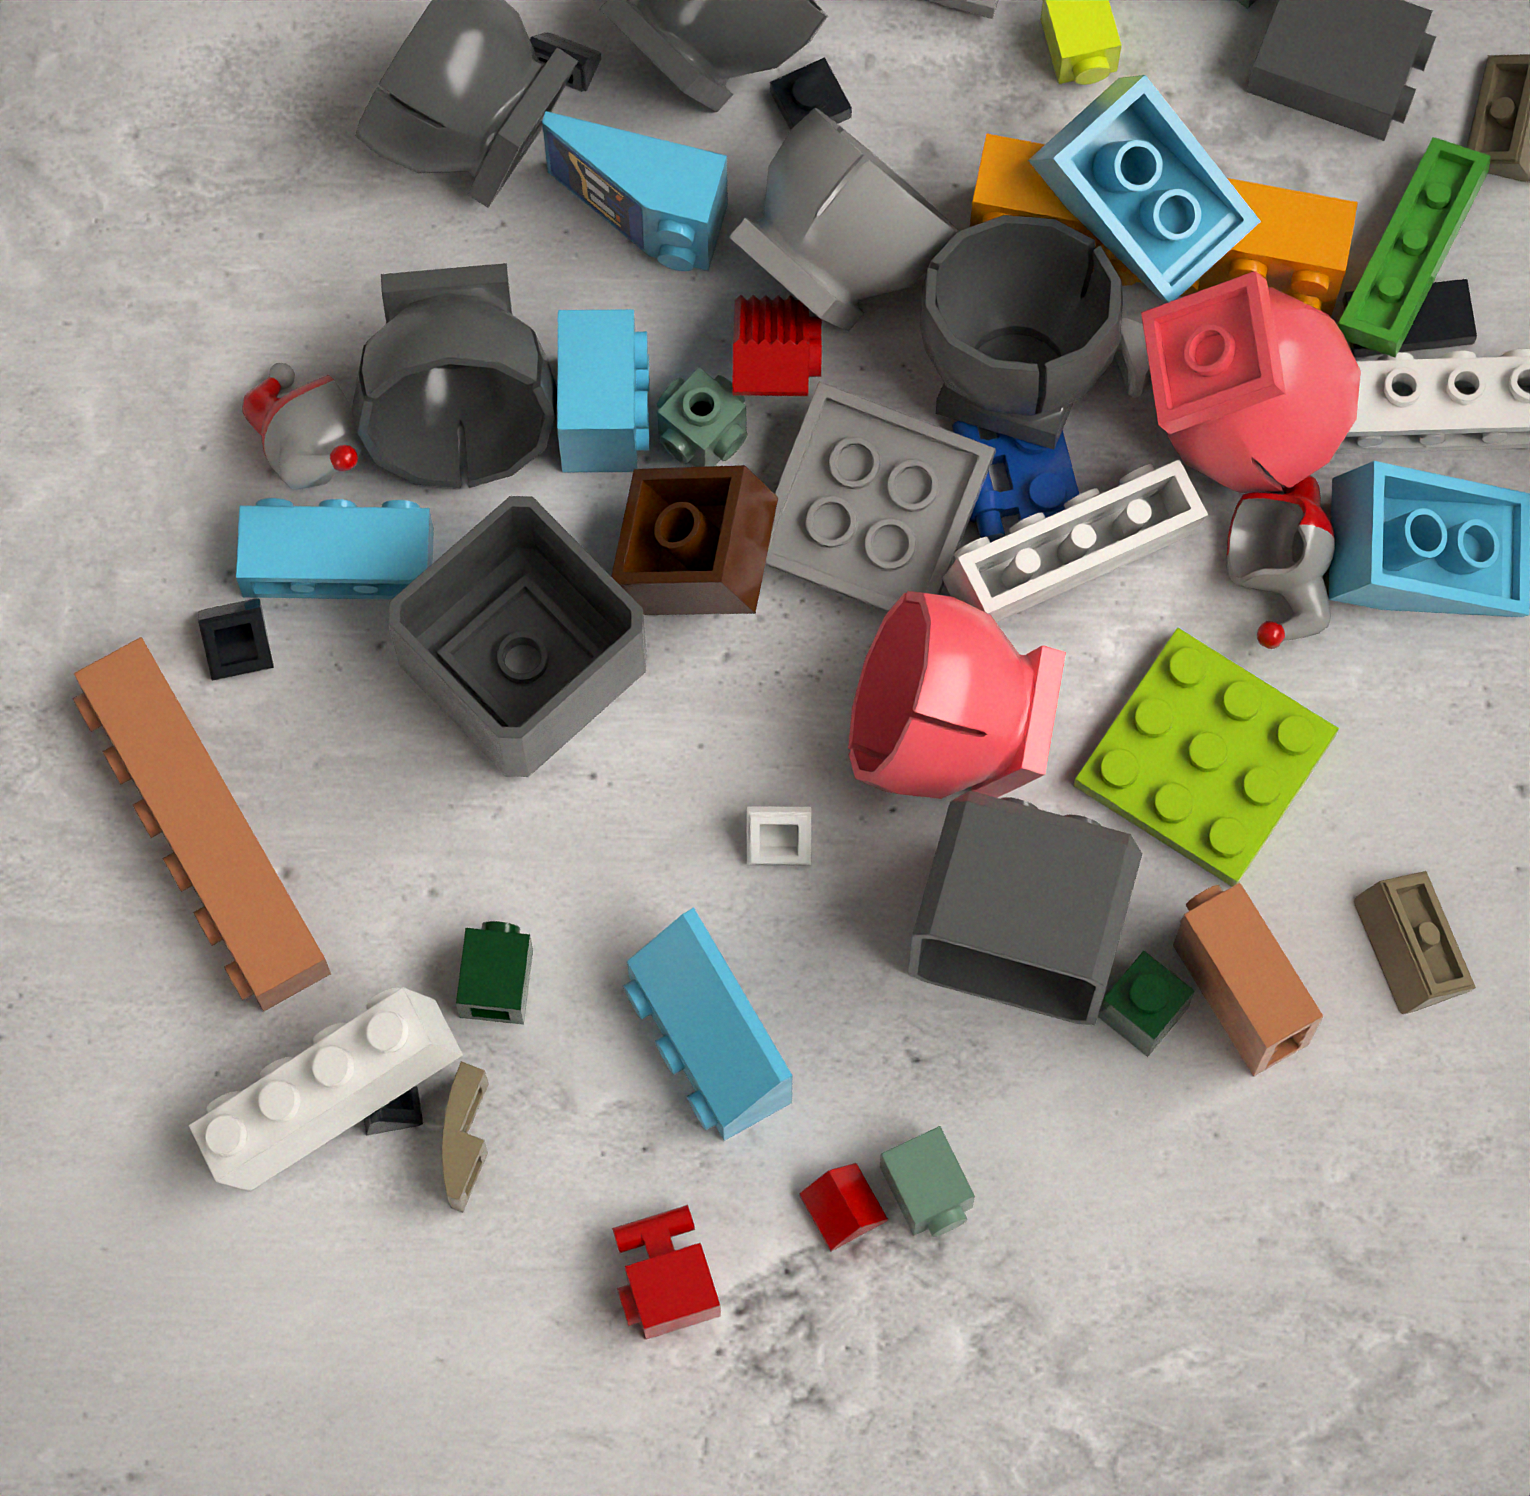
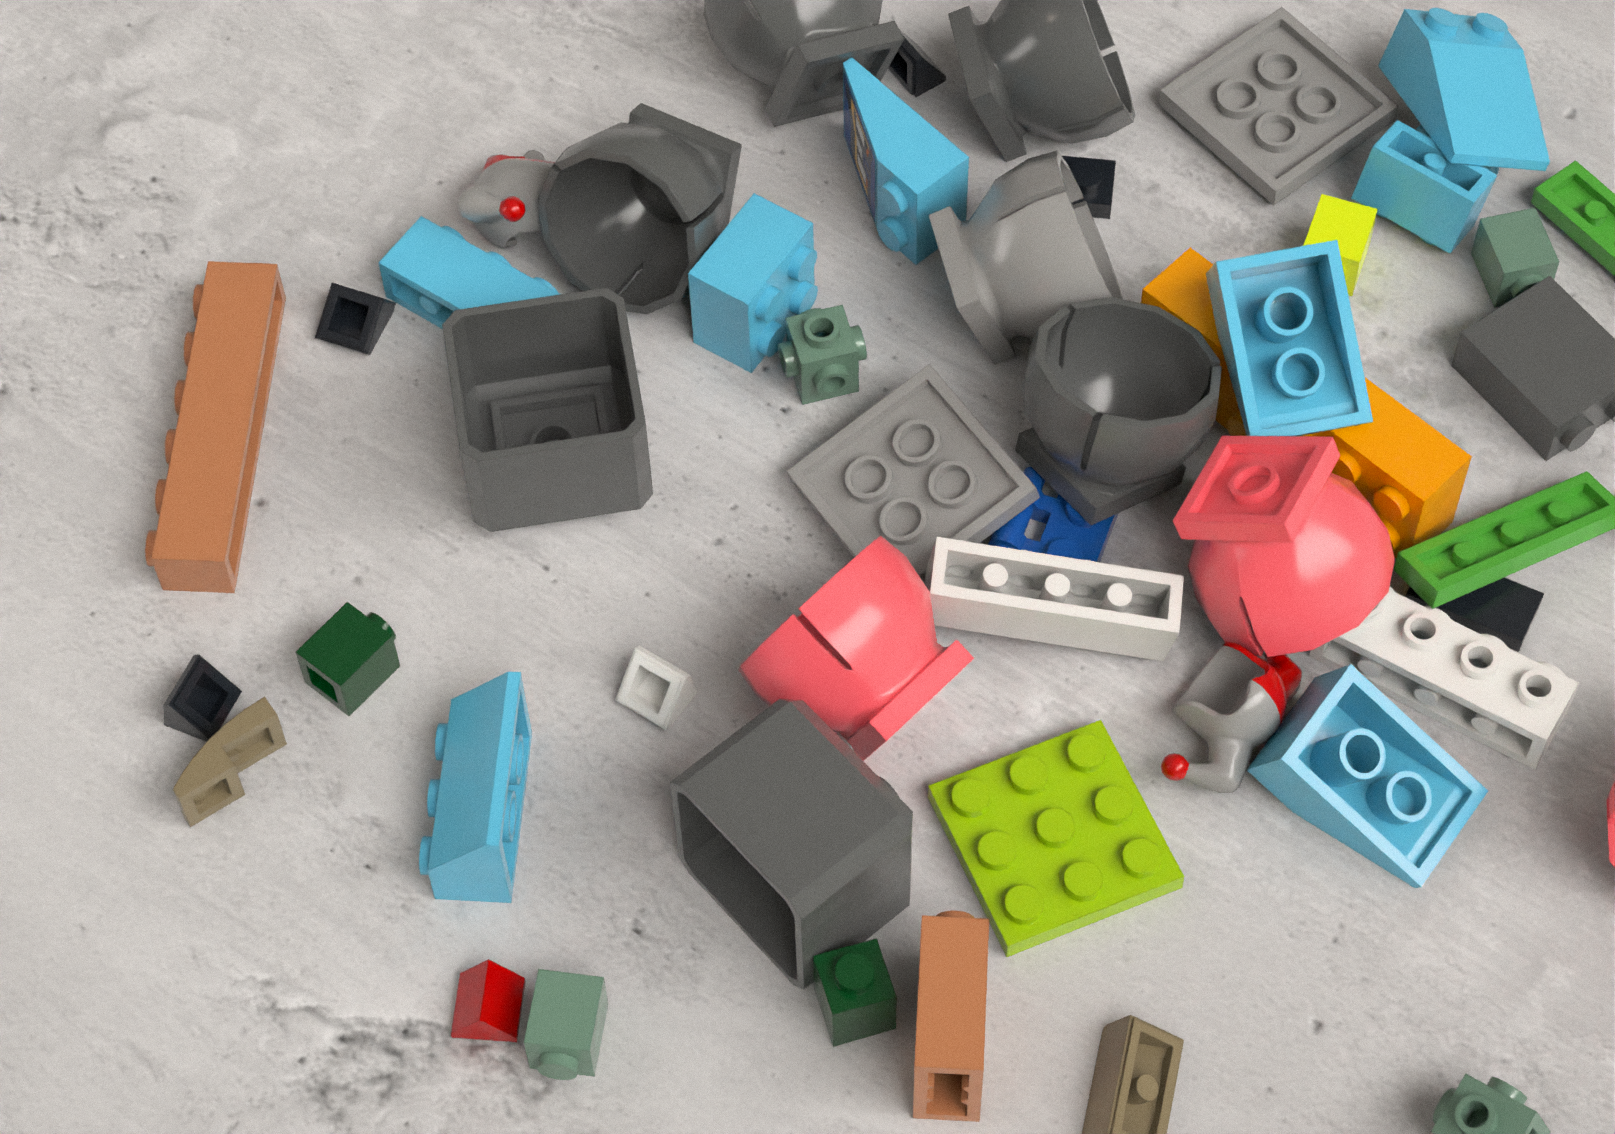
camera: 35 degrees right, 15 degrees down
(325, 1088) = (143, 650): white brick -> none
(672, 1285) = (301, 974): red brick -> none
(695, 540) = (745, 426): reddish brown brick -> none
(774, 347) = (912, 325): red brick -> none

